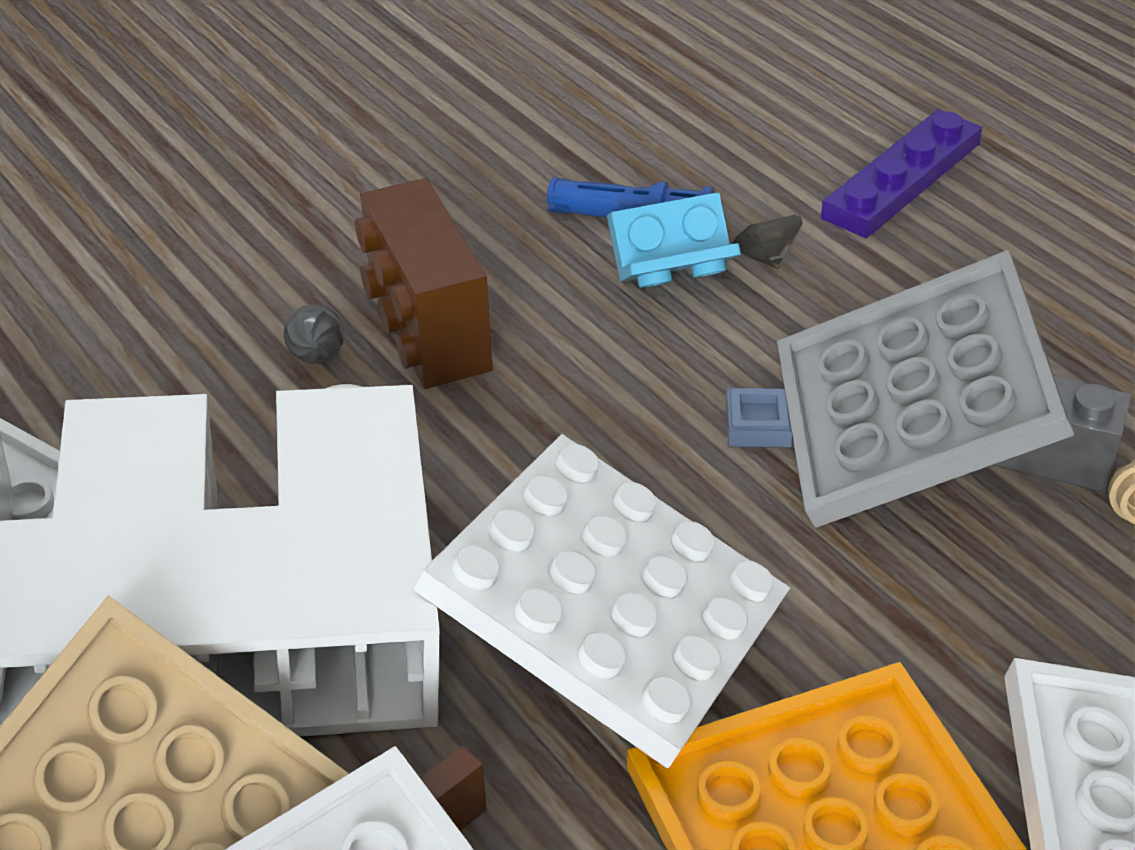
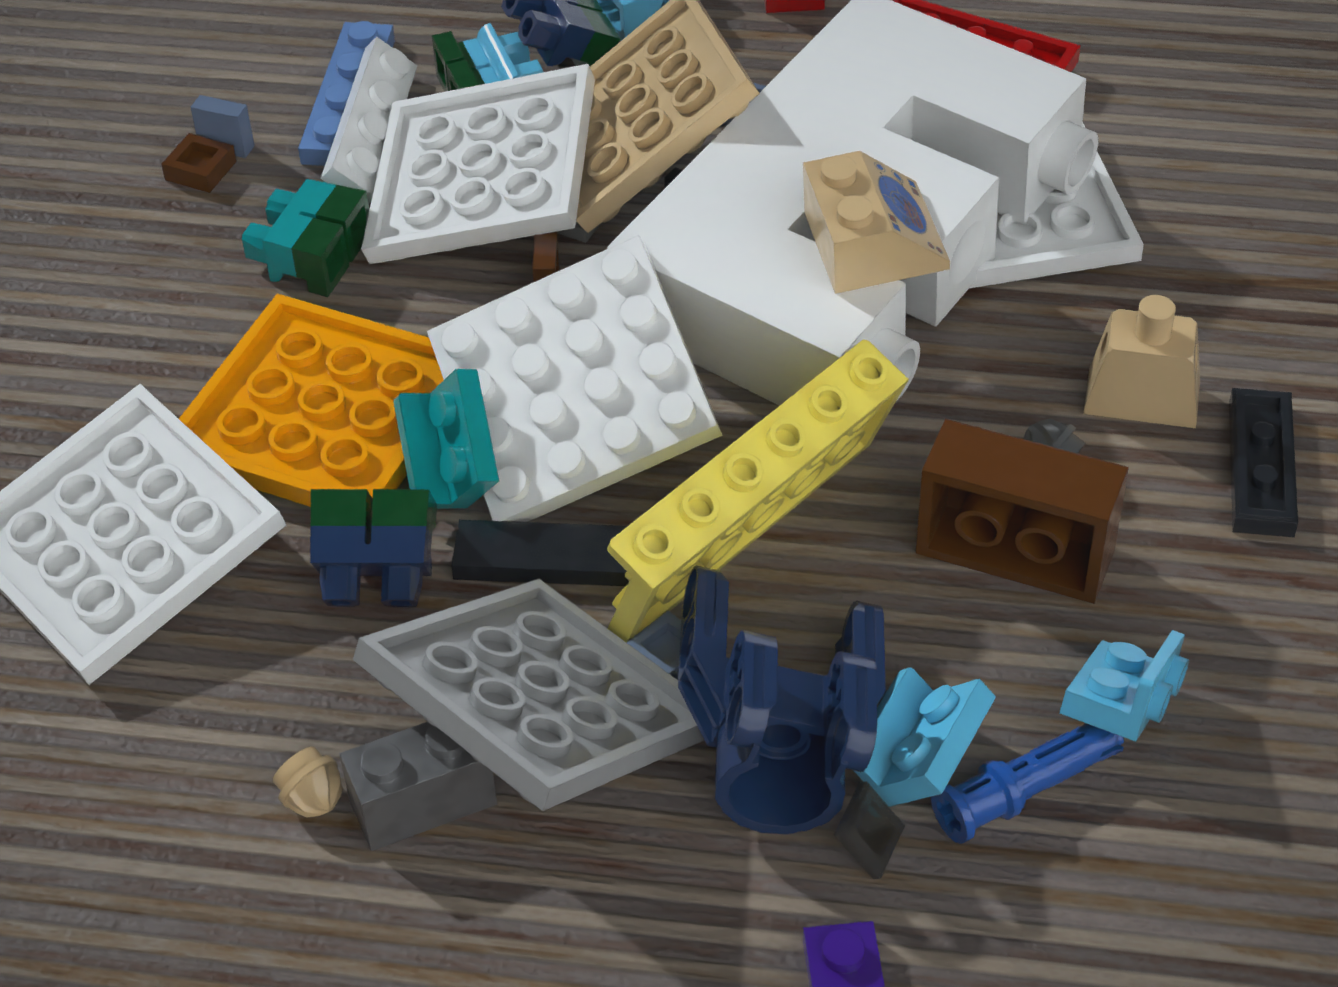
camera: 135 degrees right, 5 degrees up
(170, 290) = (1146, 366): none -> tan torso
(197, 258) = (1262, 463): none -> black tile
(247, 420) = (869, 222): none -> tan slope
(514, 181) = (1125, 687): none -> medium azure bracket
(619, 389) = (752, 484): none -> light yellow bracket
(740, 518) = (536, 551): none -> black tile
(747, 272) = (778, 728): none -> dark blue piece
(764, 643) = (448, 440): none -> teal bracket
(923, 616) = (372, 537): none -> dark blue hips

